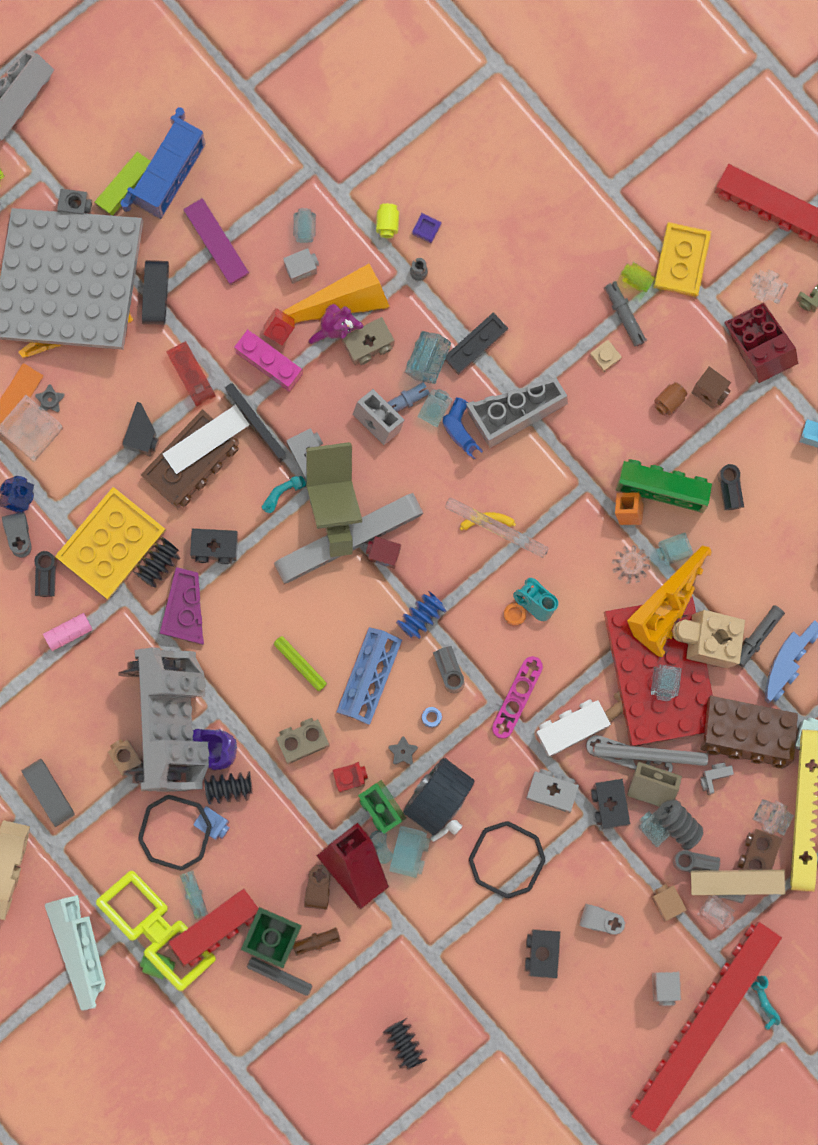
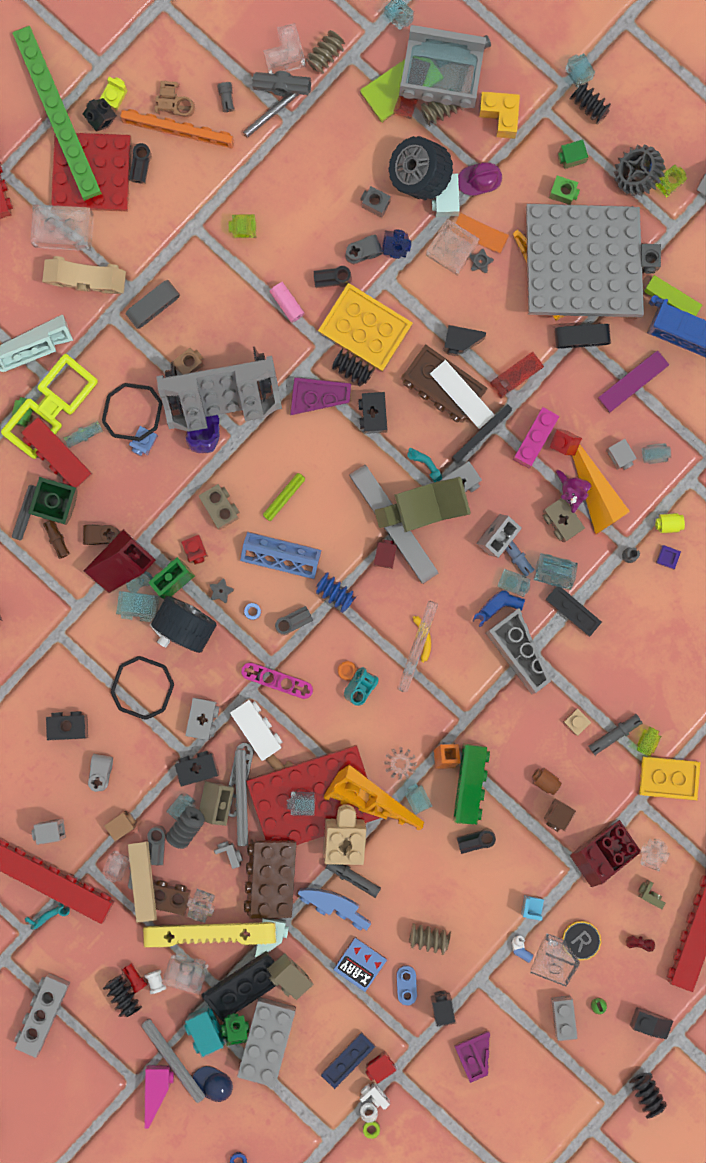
camera: 90 degrees right, 5 degrees up
(228, 788) = (172, 450): black piece -> none

